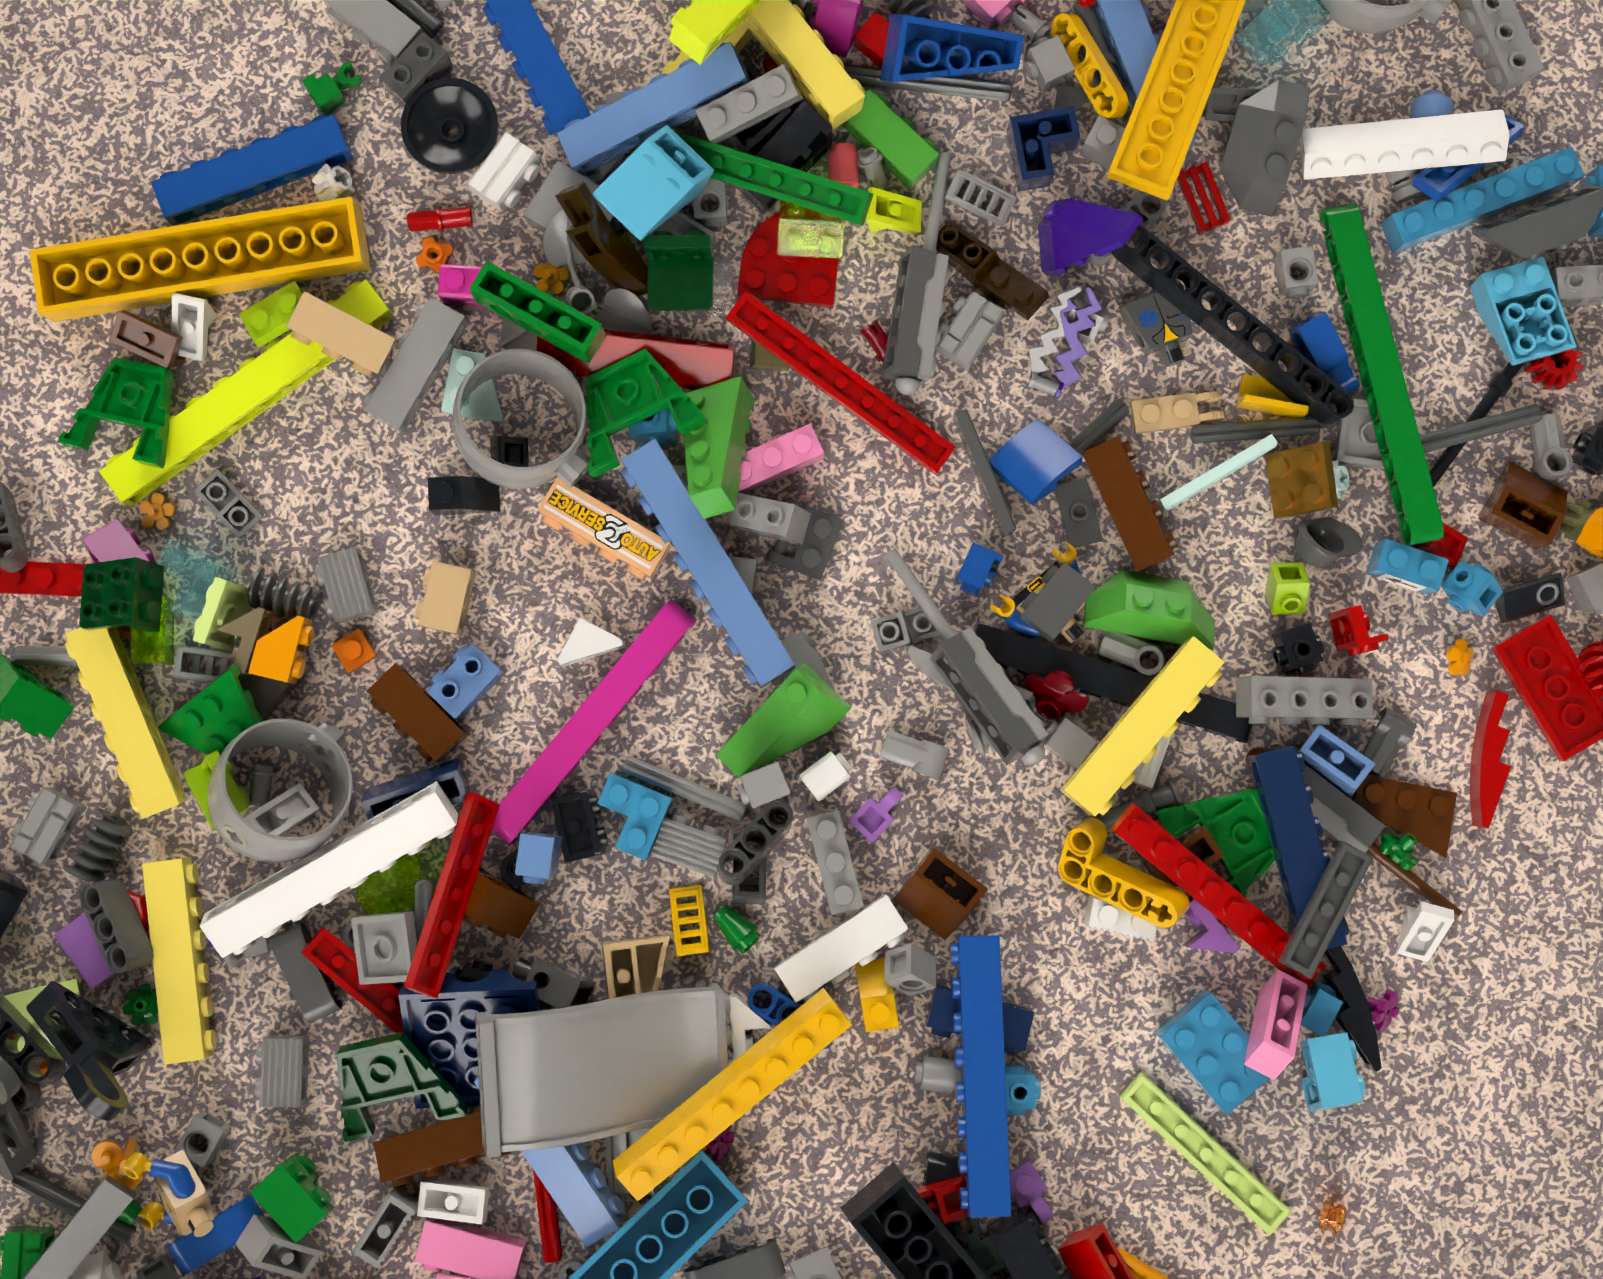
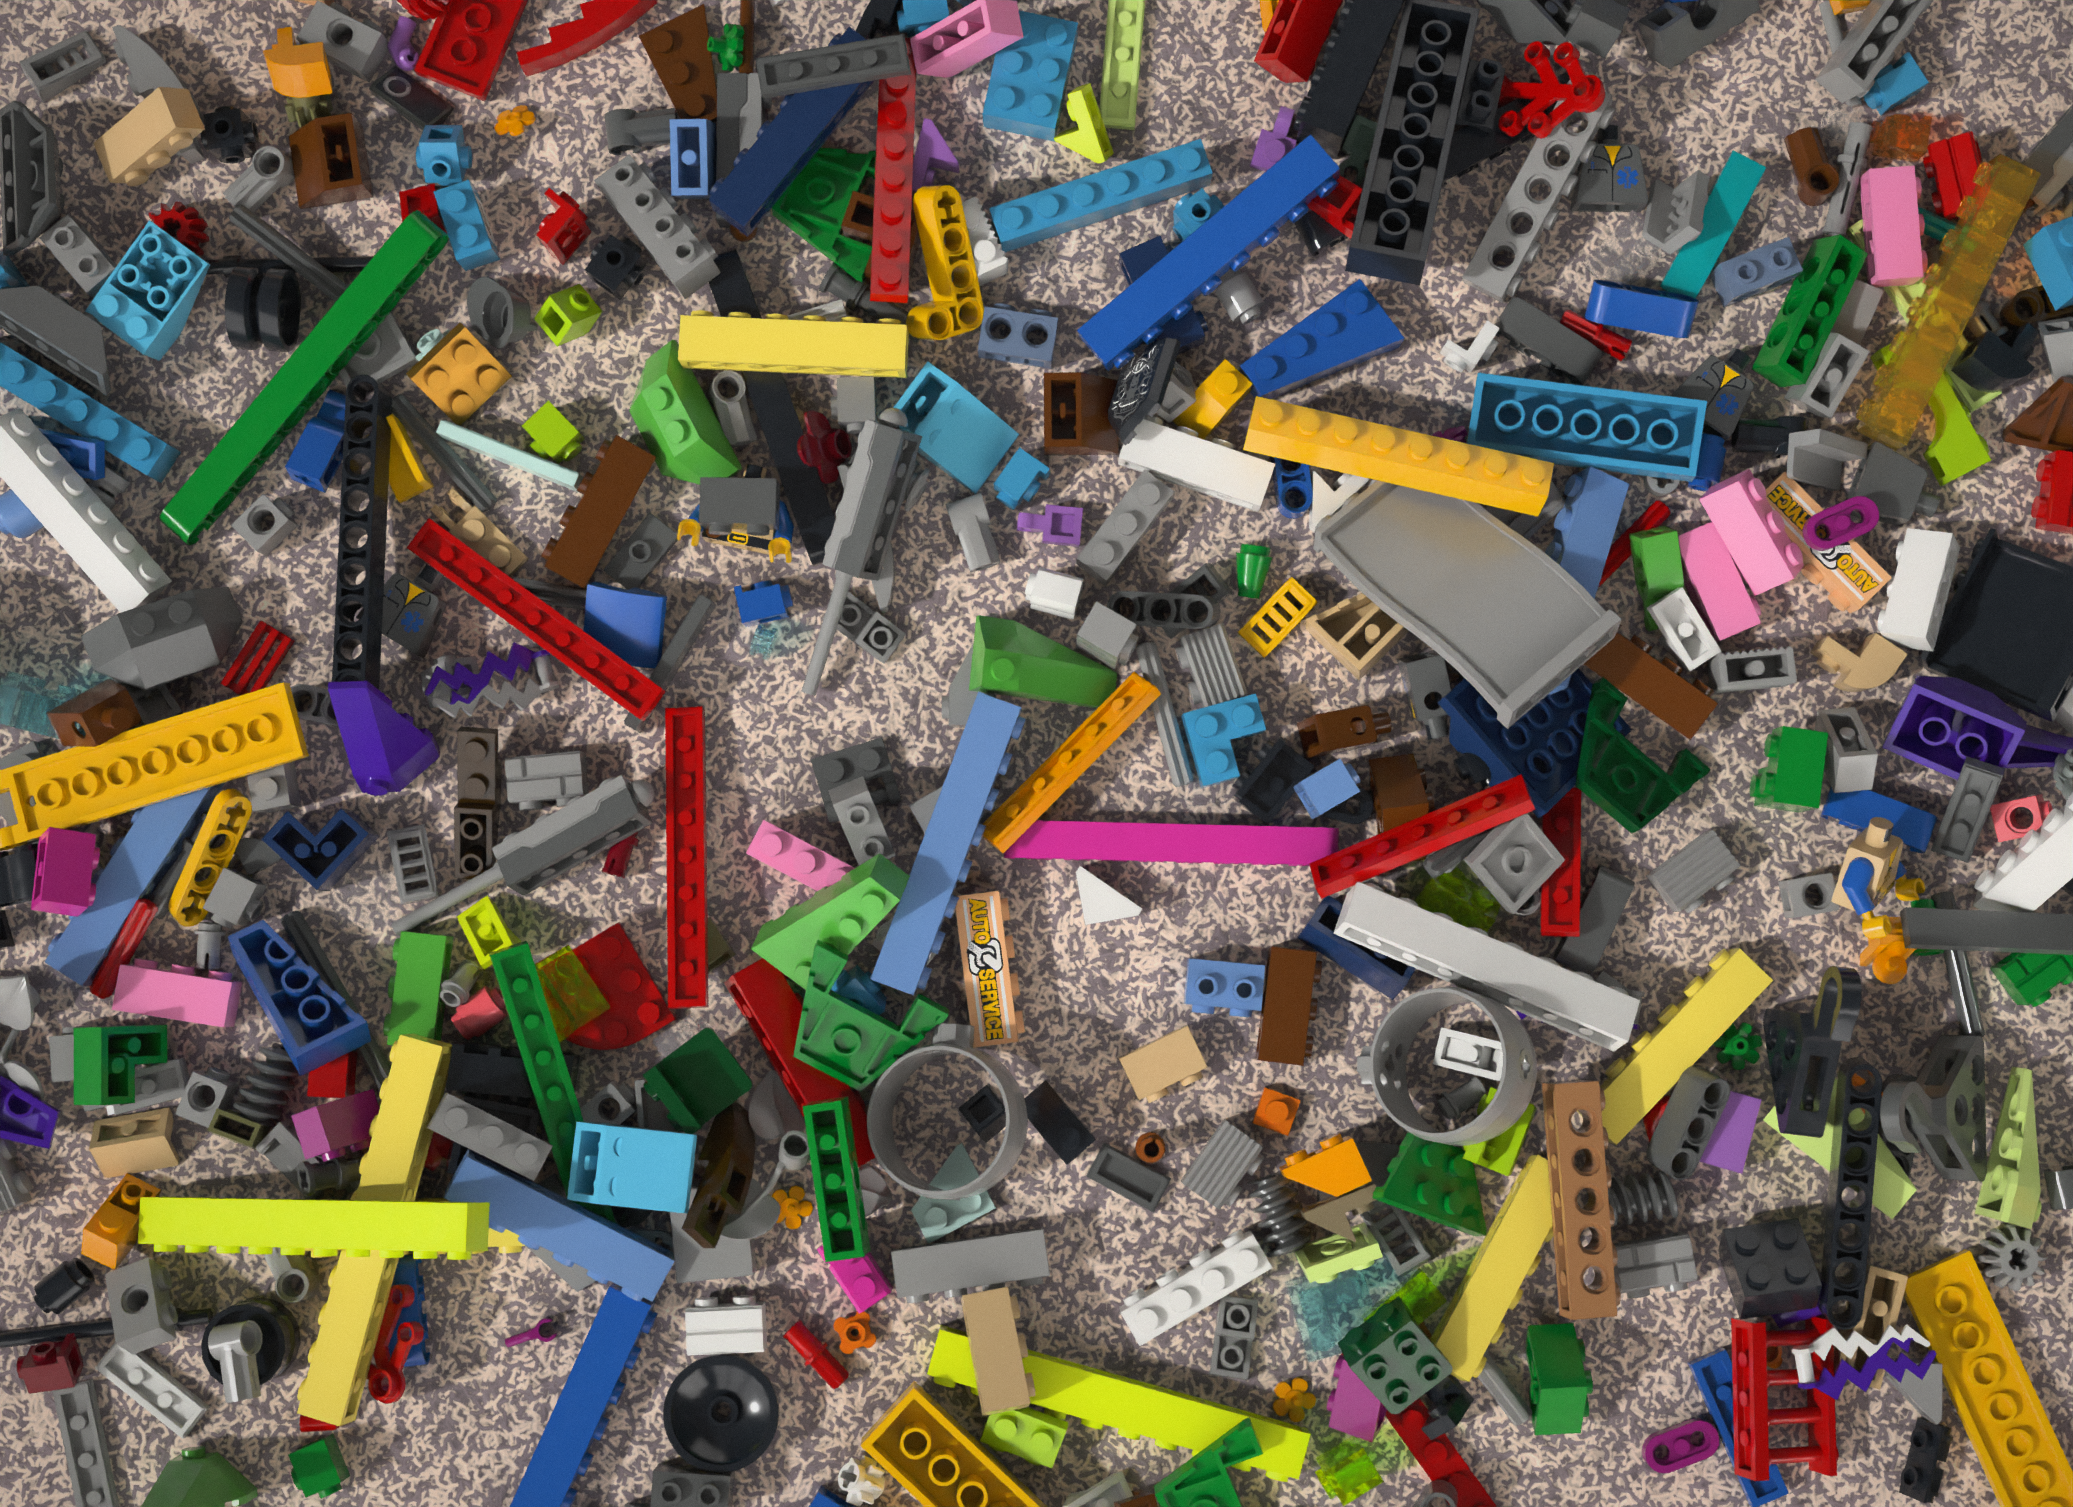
camera: 125 degrees left, 0 degrees up
(49, 770) = (1565, 1182): none -> medium nougat brick
(62, 606) = (1448, 1406): none -> black bracket
(76, 507) = (1347, 1471): none -> clear neon green brick
(280, 502) = (1195, 1287): none -> white brick
(390, 516) = (1128, 1177): none -> dark grey tile
(404, 545) = (1145, 1139): none -> dark orange pin
(514, 1219) = (1656, 566): none -> bright green piece
(578, 892) = (1332, 731): none -> reddish brown torso
(602, 46) = (530, 1334): none -> magenta hand
(700, 694) = (1069, 761): none -> light orange tile
(767, 1219) = (1482, 347): none -> white bracket
(856, 1114) = (1327, 341): none -> blue wedge
(923, 951) = (1142, 386): none -> black tile
(926, 814) = (1020, 479): none -> dark azure brick
(950, 549) = (763, 641): none -> clear light blue bush
(998, 796) = (955, 427): none -> medium azure slope
(1024, 886) = (1015, 346): none -> sand blue brick
(1084, 403) = (536, 619): none -> red plate
(1086, 1033) = (1101, 196): none -> dark azure brick
(1138, 1059) = (1090, 135): none -> neon yellow slope
(1209, 514) = (553, 434): none -> lime brick
(1245, 60) = (100, 711): none -> reddish brown torso
(1452, 379) = (262, 309): none -> black wheel
(1575, 618) = (400, 45): none -> medium lavender arm

